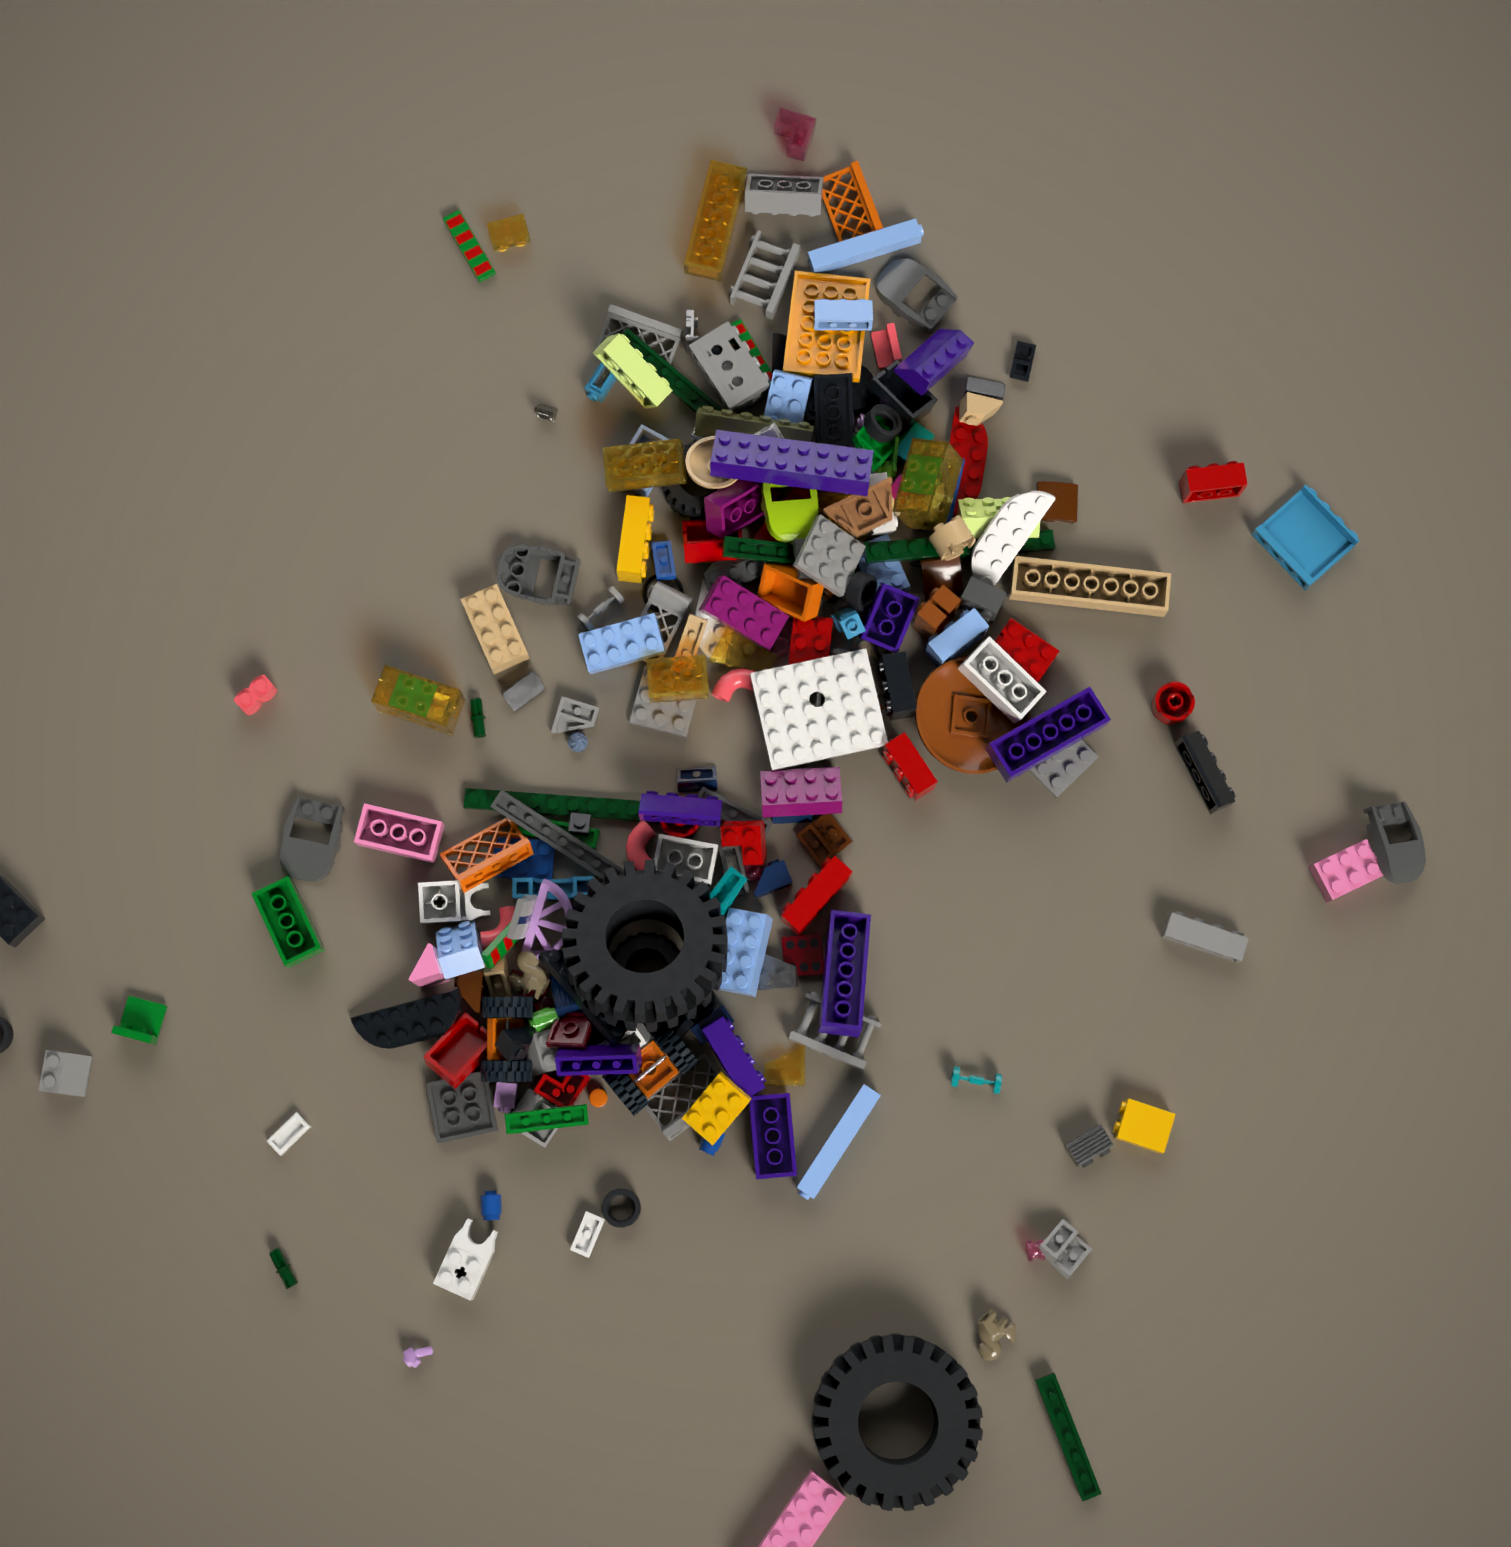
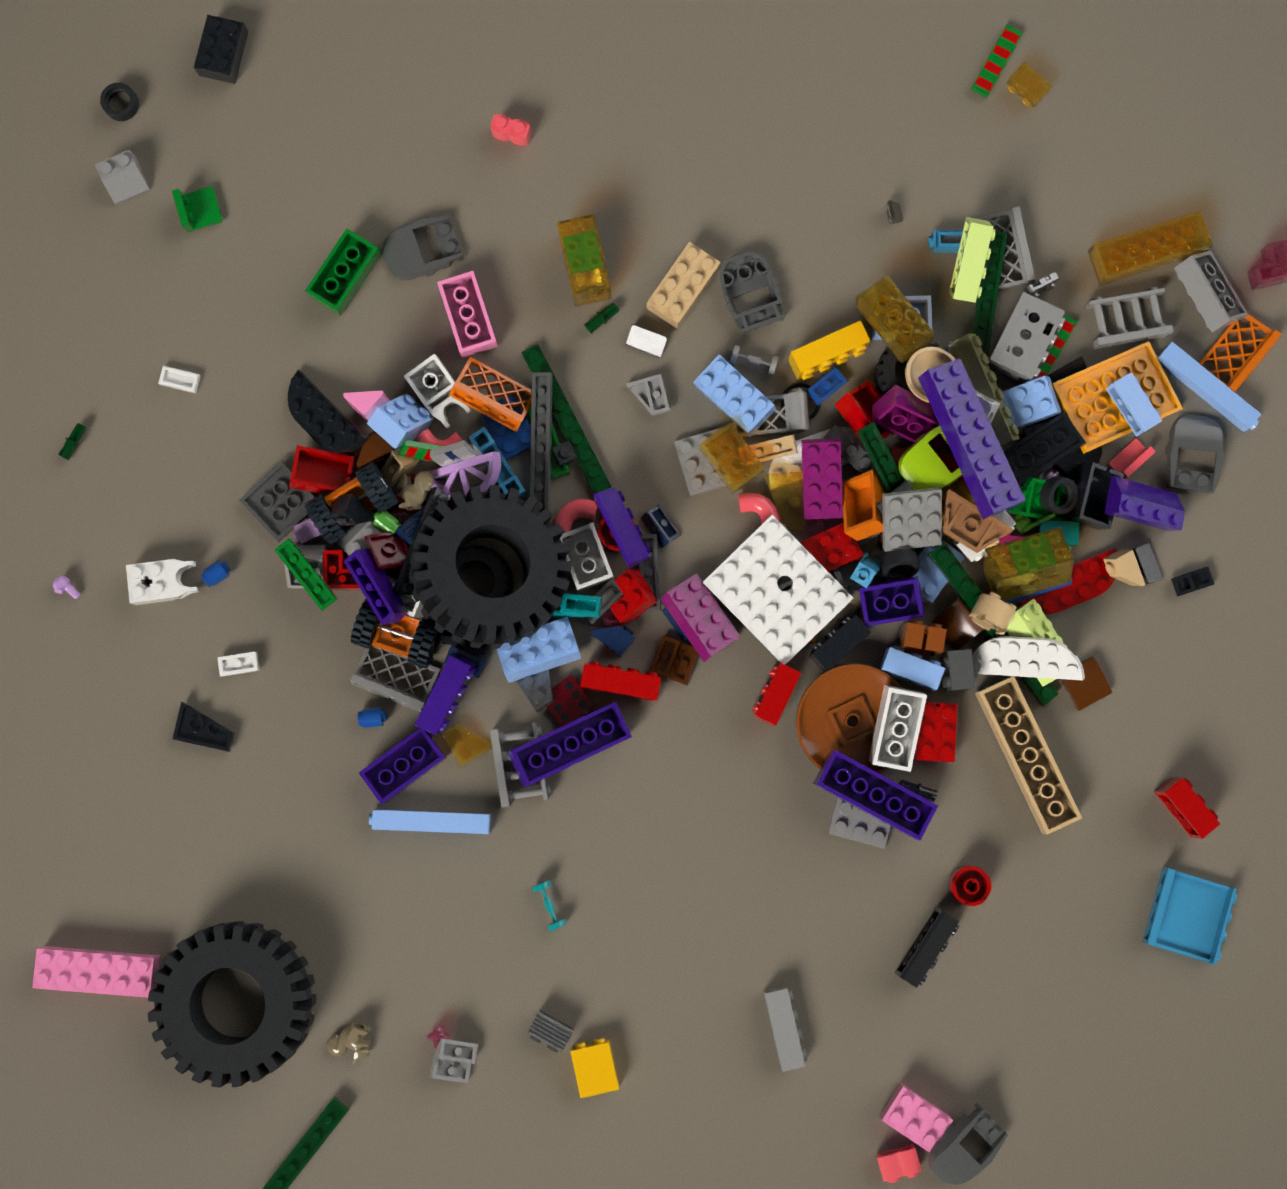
camera: 65 degrees right, 5 degrees up
(577, 742) = (631, 410): sand blue plate -> none
(598, 1097) = (352, 605): orange piece -> none
(626, 1306) = (201, 730): none -> black wing
(636, 1207) = (275, 692): black tyre -> none
(716, 1108) = (395, 706): yellow plate -> none
(1069, 692) = (920, 790): none -> black axle
(1377, 909) = (899, 1163): none -> coral brick

